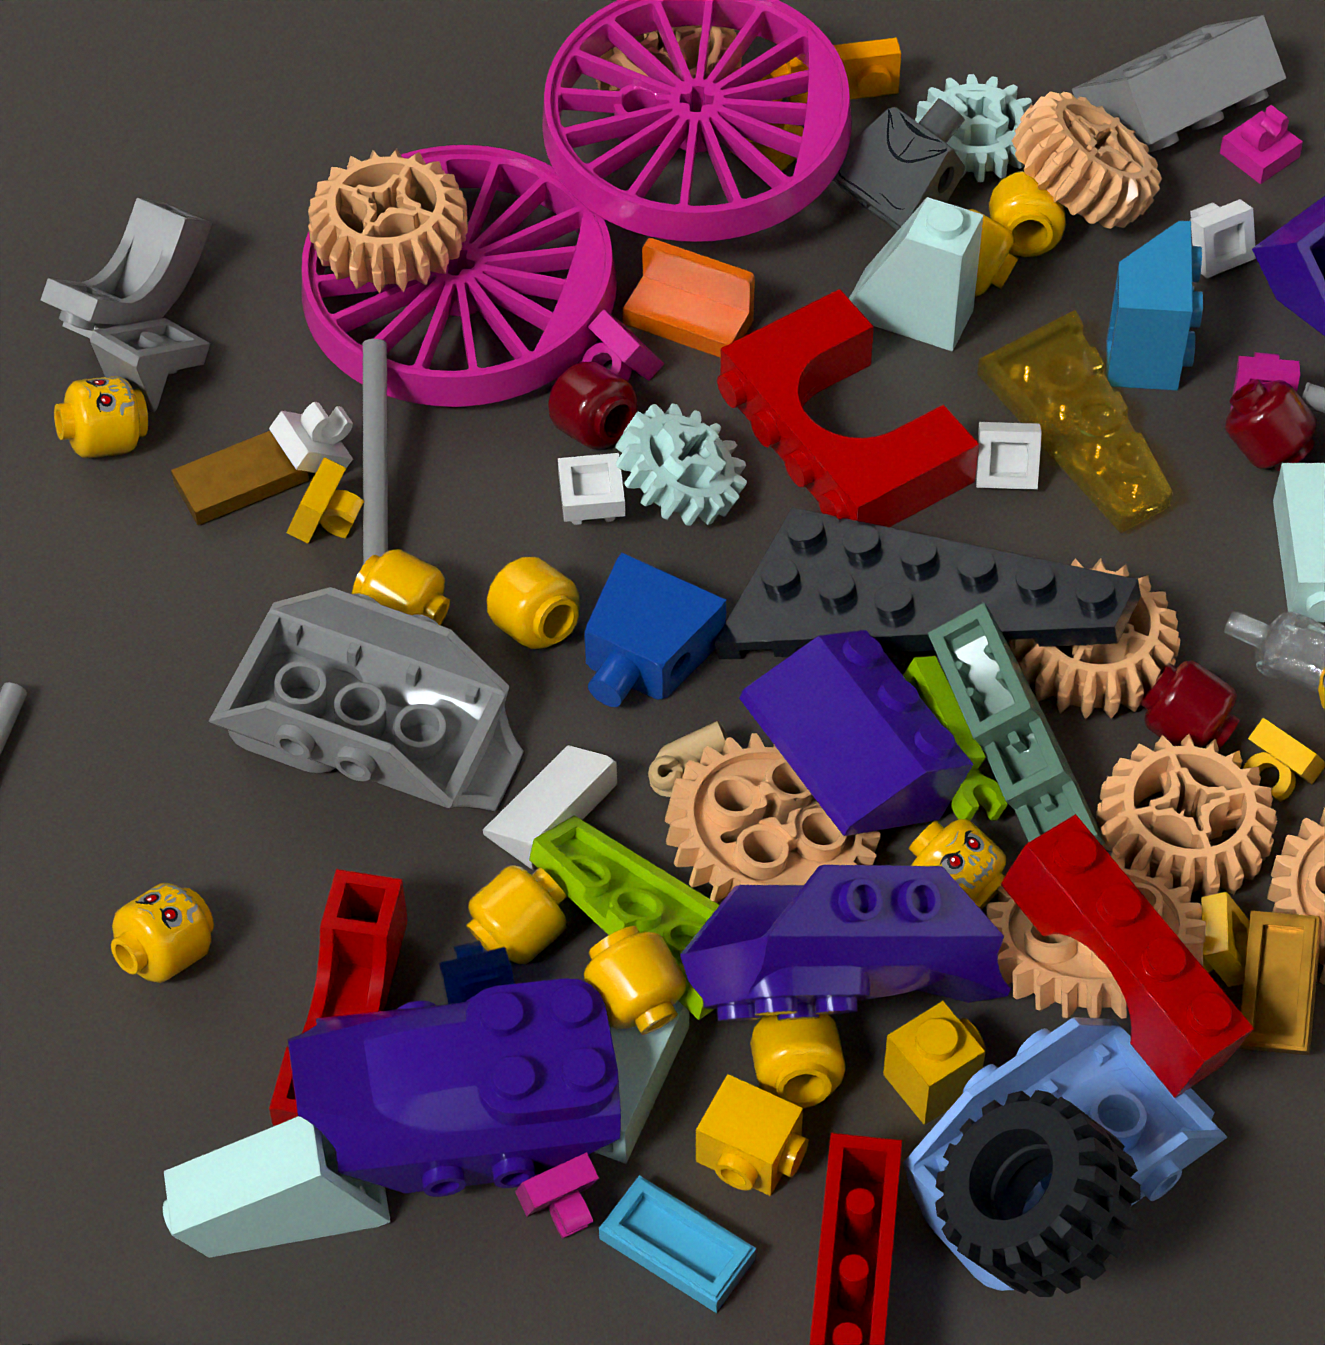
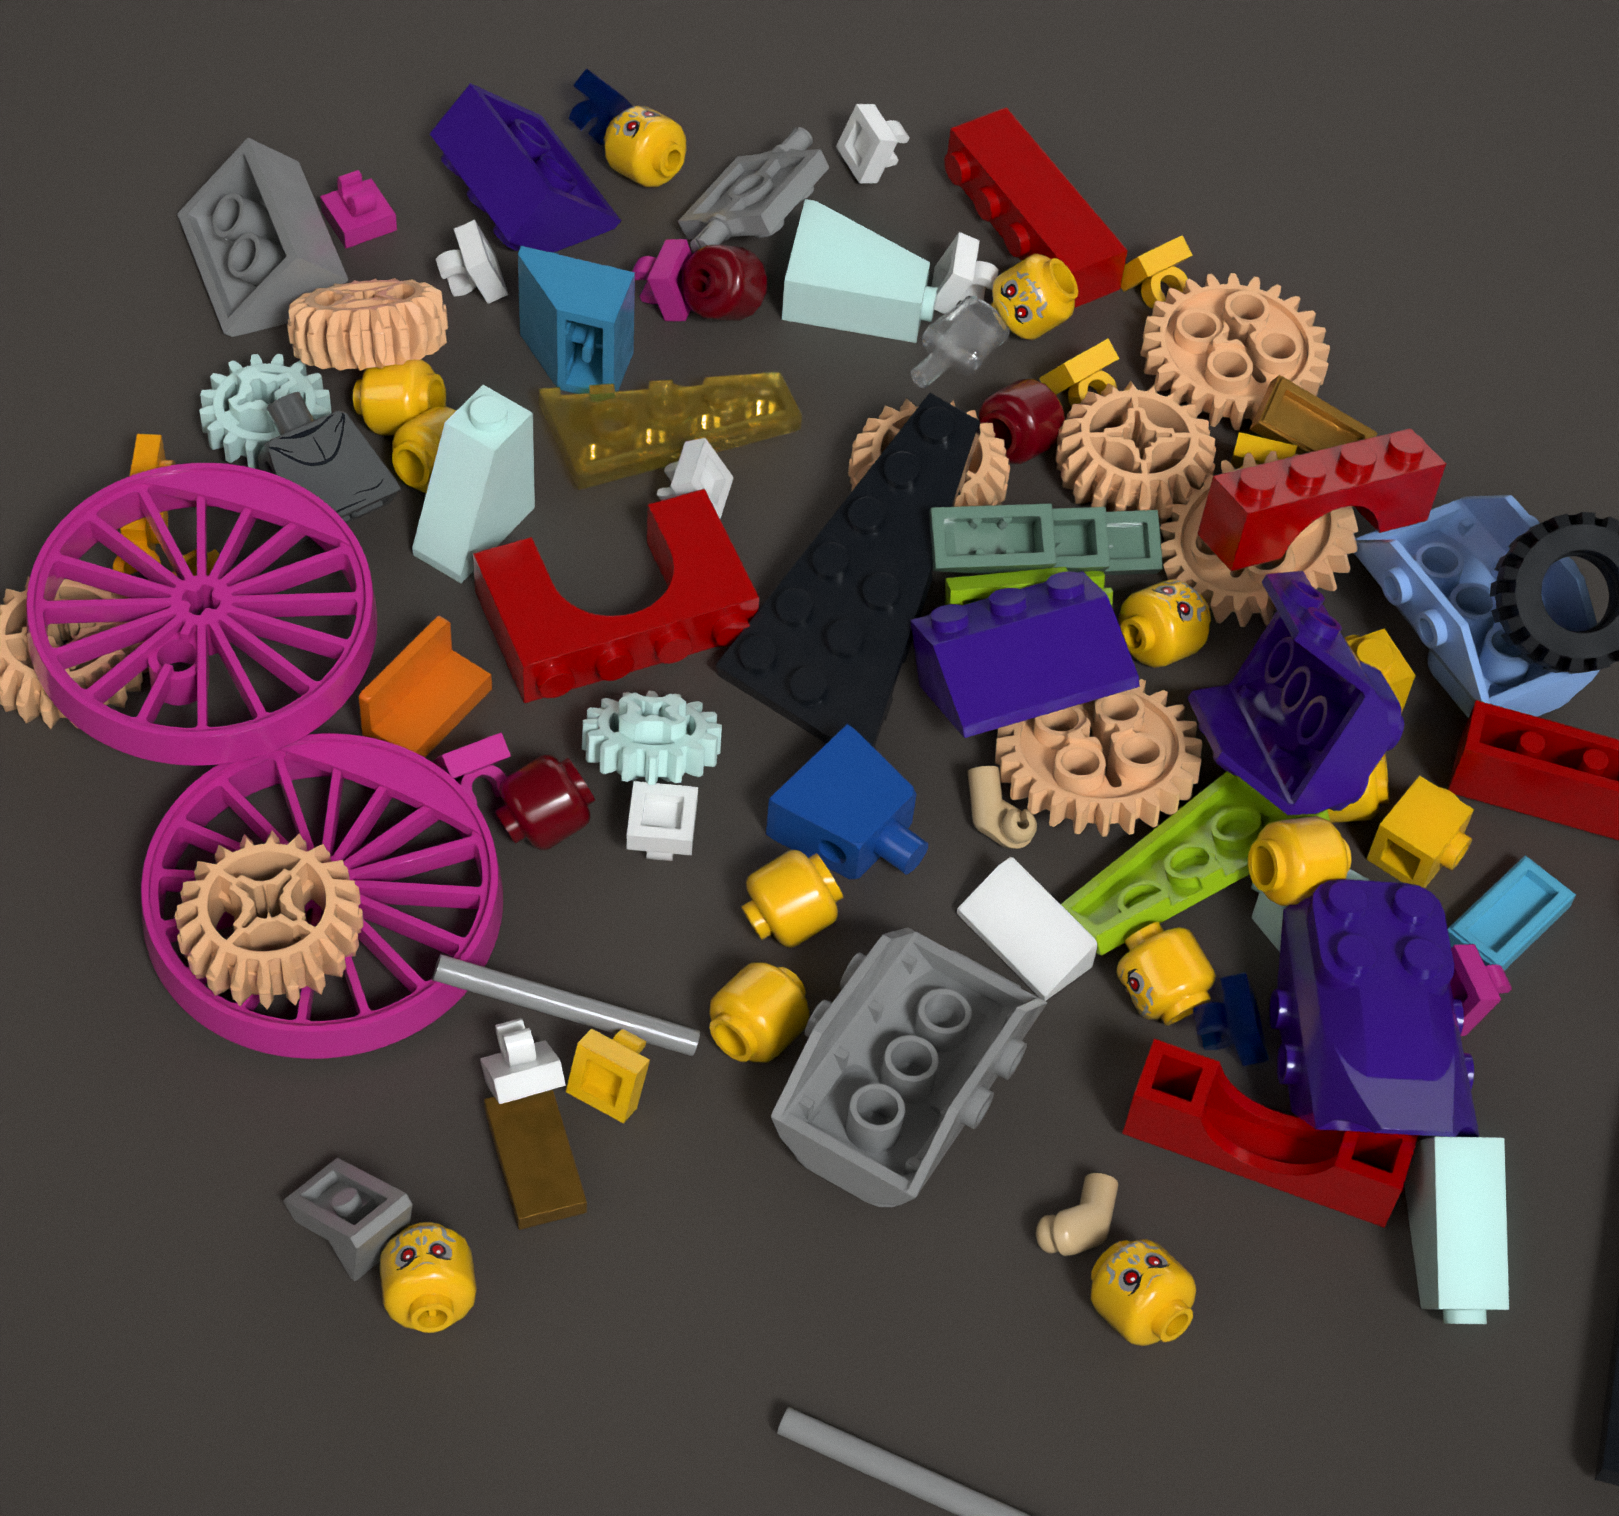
camera: 85 degrees left, 0 degrees up
(141, 277) = (224, 1216): light grey arch -> none
(235, 887) = (1082, 1225): none -> tan arm

